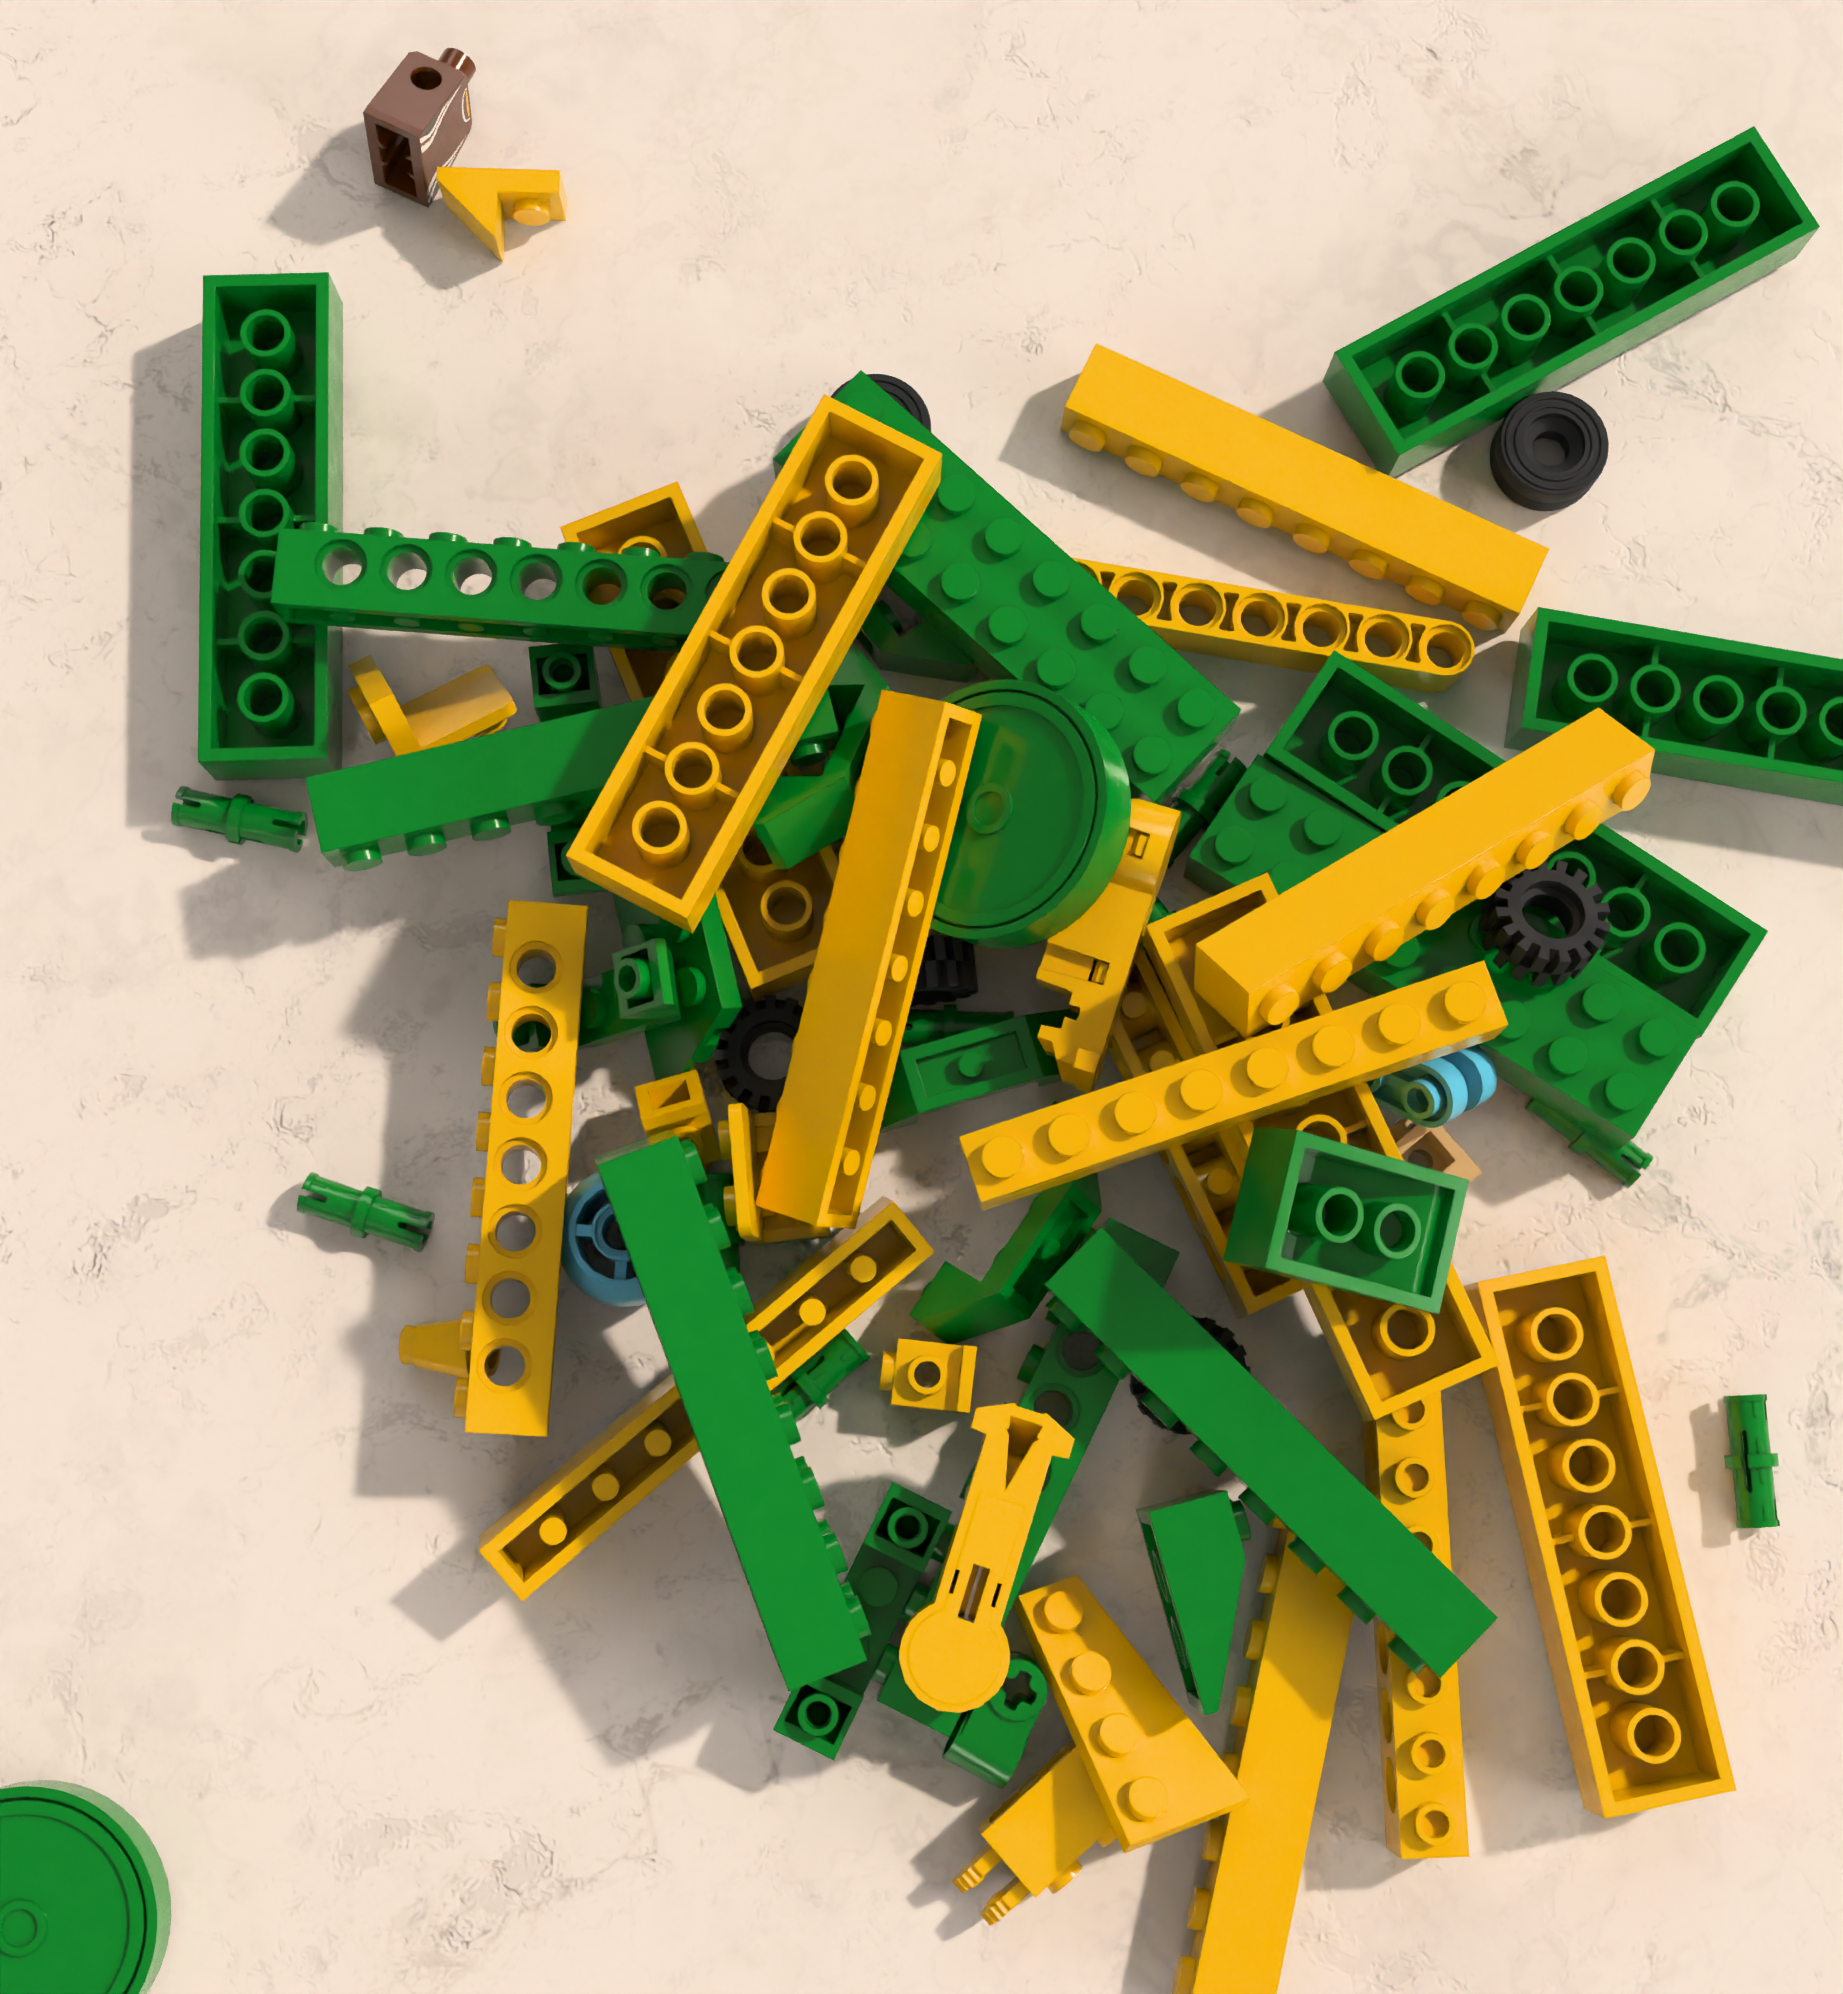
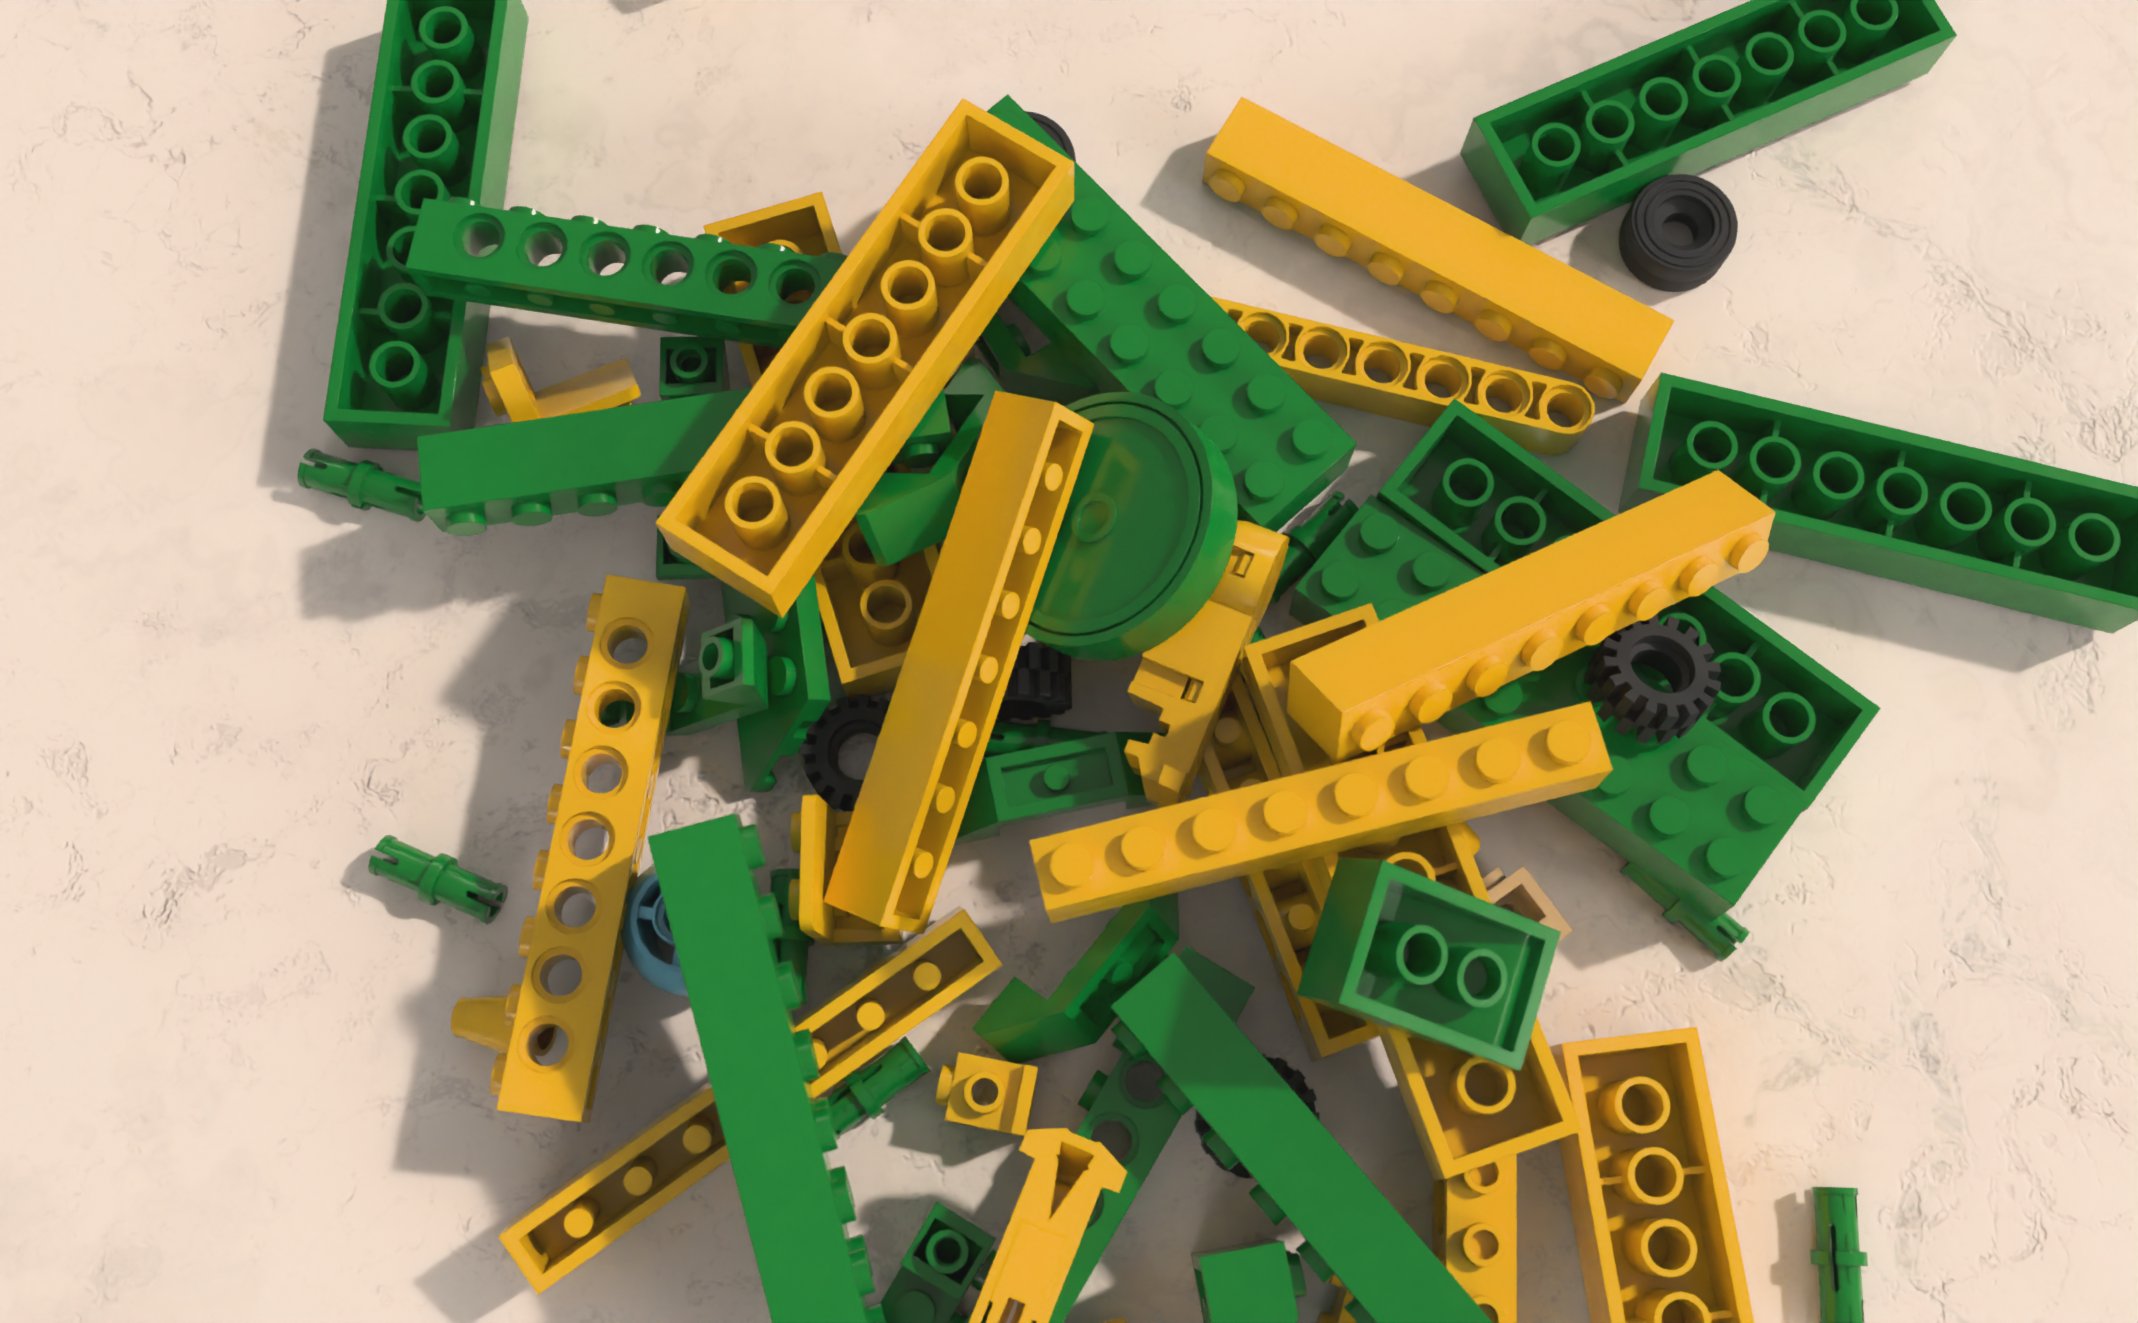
camera: 10 degrees right, 5 degrees down
(679, 1106) = (761, 799): yellow brick -> none
(1438, 1088) = (1531, 837): brick -> none

